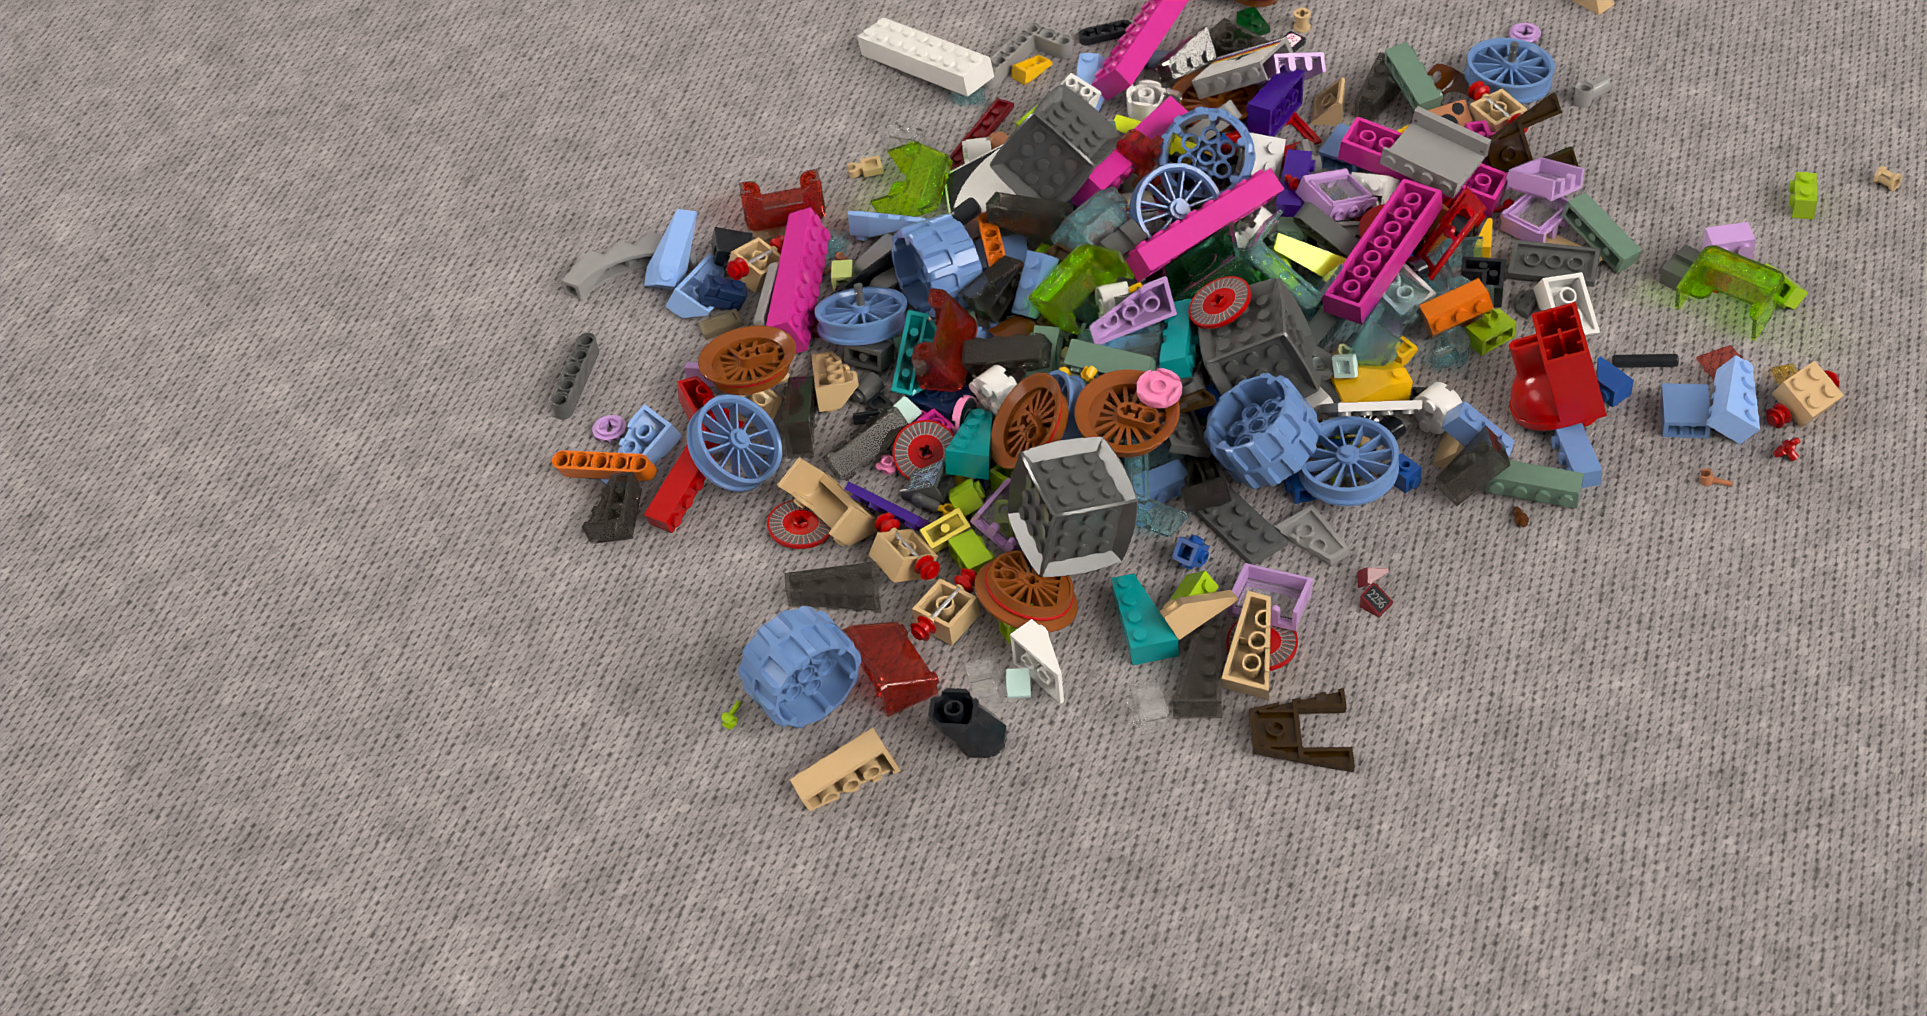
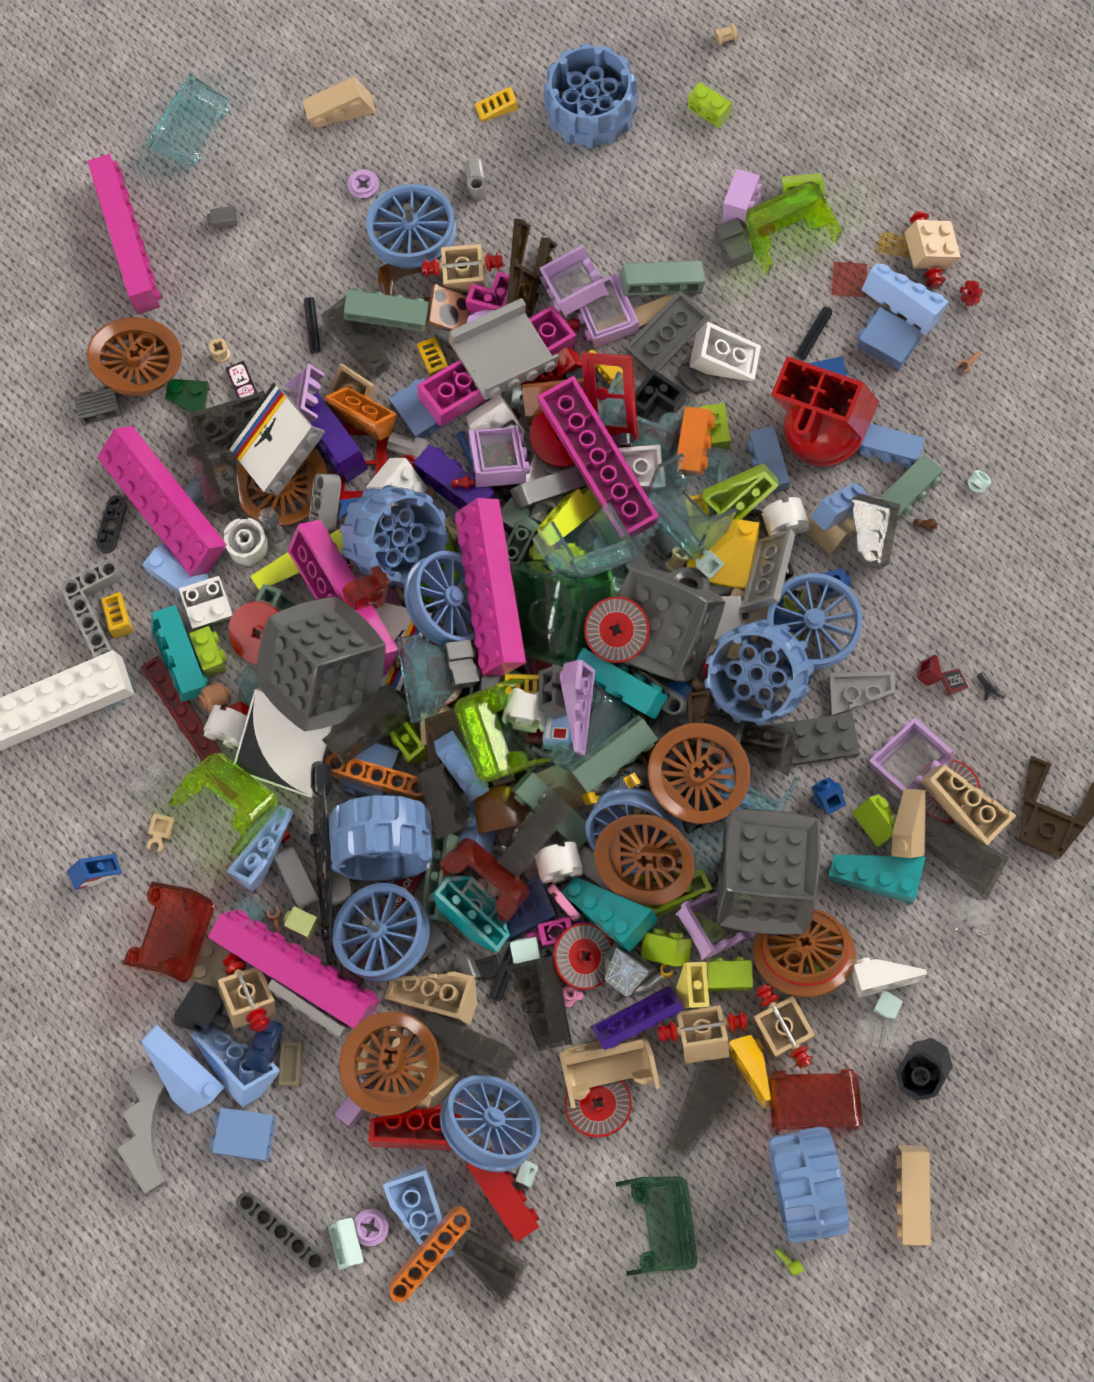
camera: 60 degrees left, 25 degrees up
(587, 417) = (345, 1243): none -> light aqua slope
(644, 320) = (243, 1134): none -> medium blue brick
(710, 500) = (525, 1173): none -> light aqua tile
(737, 608) = (667, 1222): none -> clear green windscreen
(809, 145) = (93, 870): none -> blue slope
(891, 593) = (750, 1061): none -> yellow slope
(1020, 102) = (177, 653): none -> teal wedge
(1159, 388) = (693, 733): bright pink tile -> none
(1312, 109) = (361, 412): none -> orange slope
(1364, 64) = (312, 325): none -> black axle
(1390, 630) = (988, 686): none -> black bar
(1435, 364) = (741, 491): none -> lime wedge
(1487, 380) = (767, 451): none -> medium blue brick
(1596, 534) = (979, 479): none -> light aqua tile
(1678, 77) = (505, 108): none -> yellow slope
(1732, 113) = (580, 68): none -> medium blue wheel

